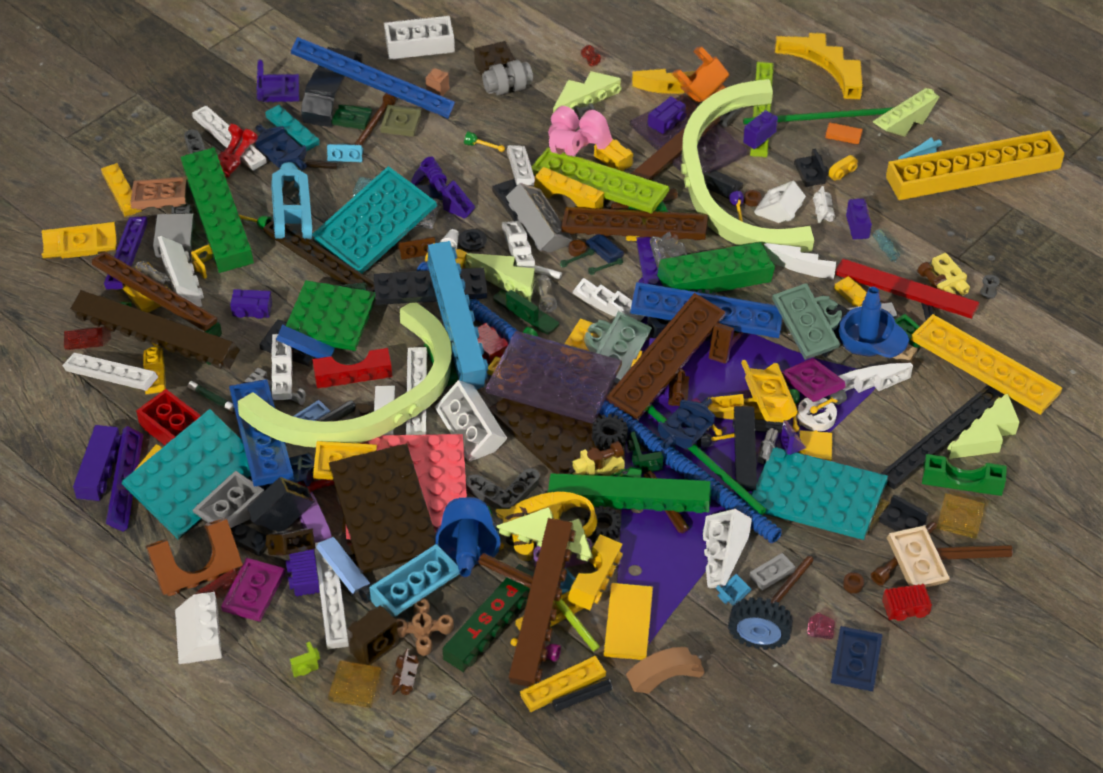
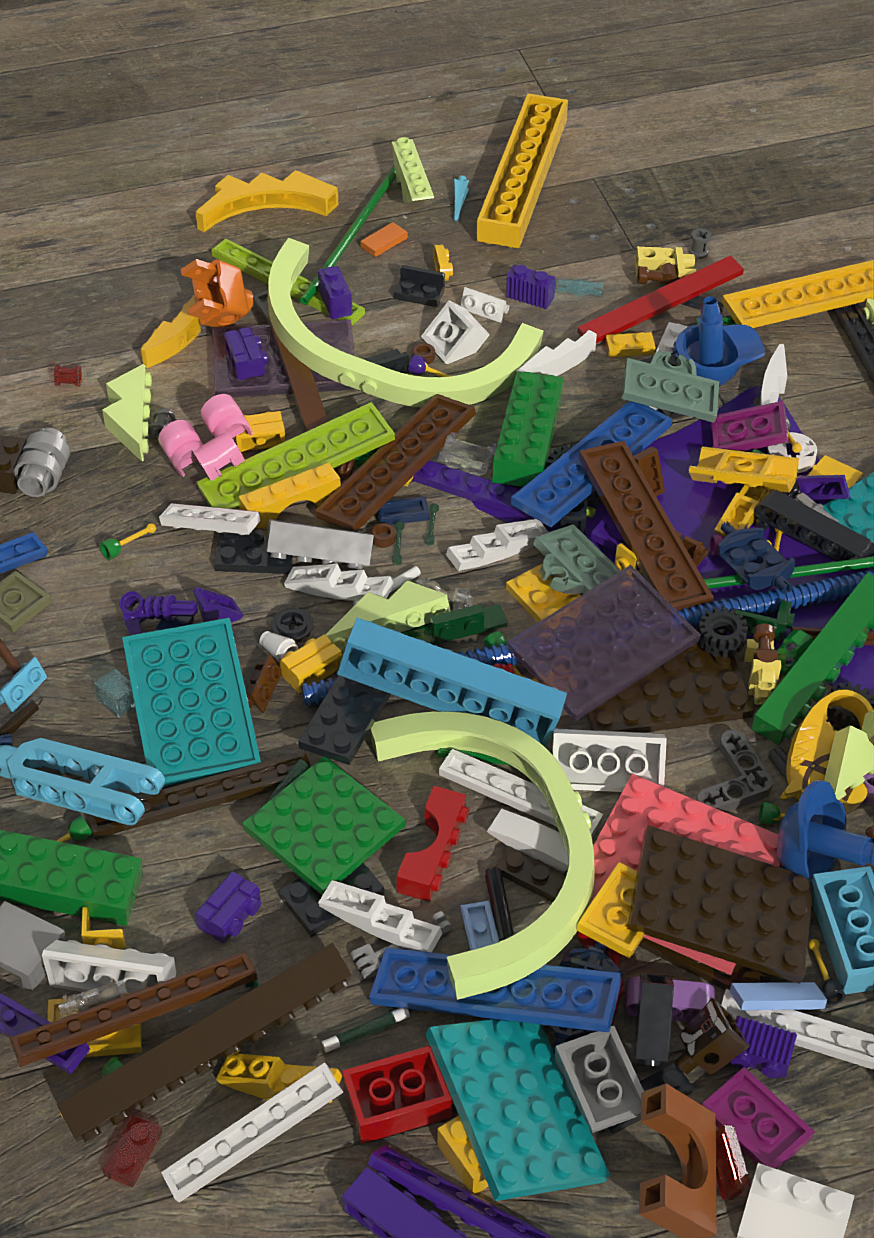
camera: 60 degrees left, 0 degrees up
(304, 343) = (363, 872): blue tile -> none

